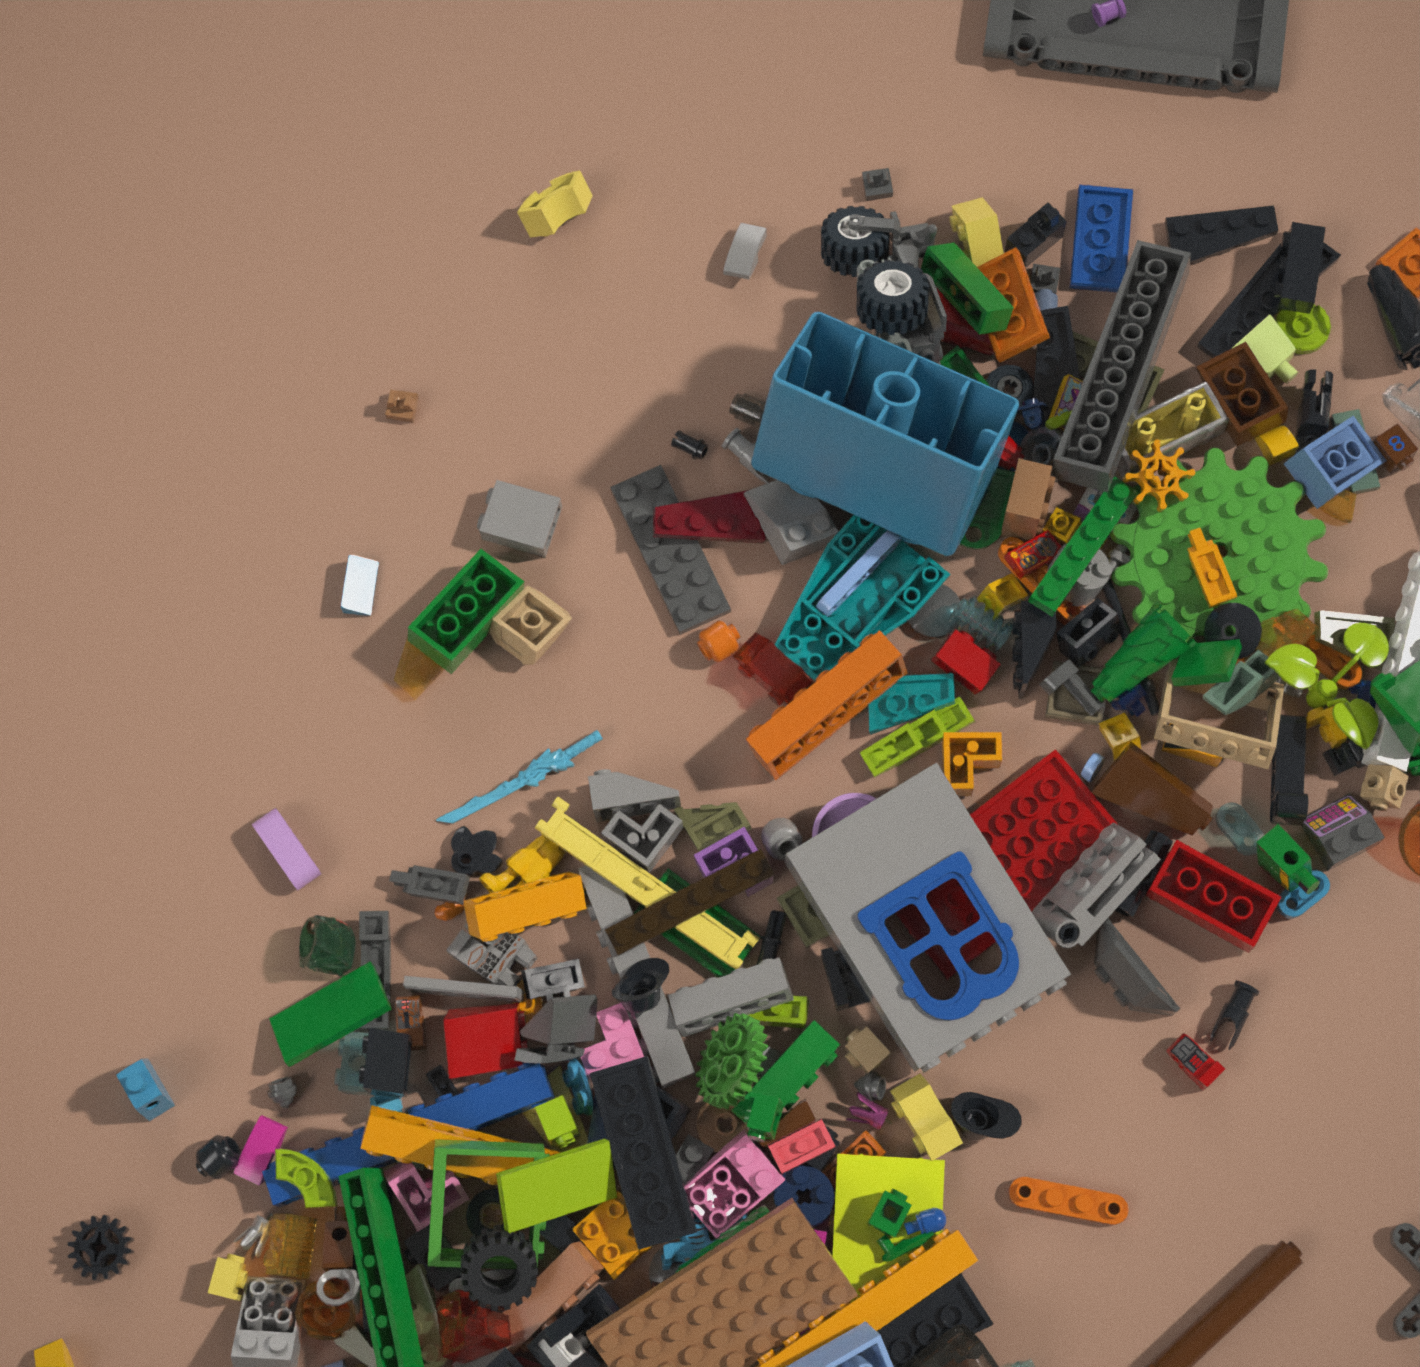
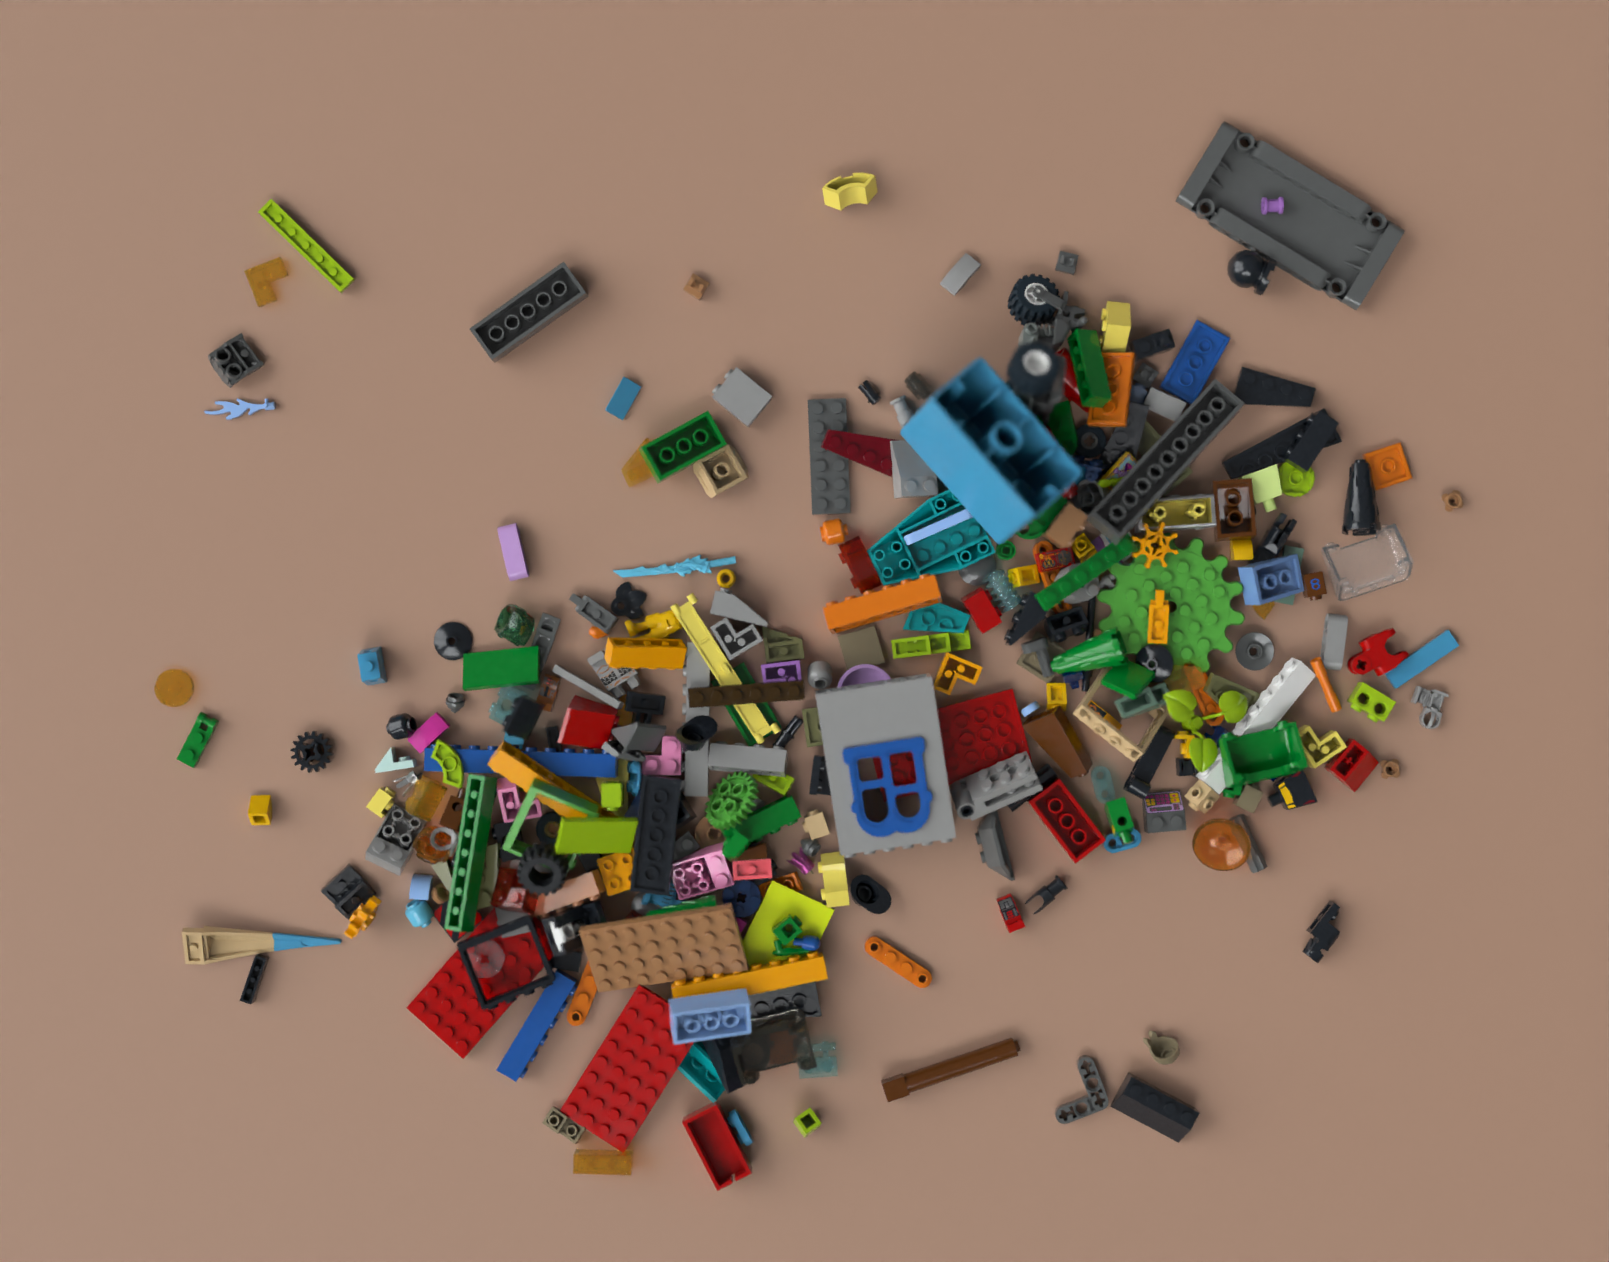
camera: 20 degrees right, 15 degrees up
(187, 523) = (528, 312): none -> dark grey brick
(220, 1218) = (390, 762): none -> light aqua slope
(254, 1021) = (462, 638): none -> black dish
(596, 756) = (720, 578): none -> yellow plate
(822, 780) = (861, 647): none -> dark tan tile
(960, 577) = (1005, 553): none -> green wheel
(1086, 300) = (1164, 403): none -> light grey hinge
(1117, 94) = (1250, 270): none -> black tile
(1368, 557) = (1263, 647): none -> dark grey dish

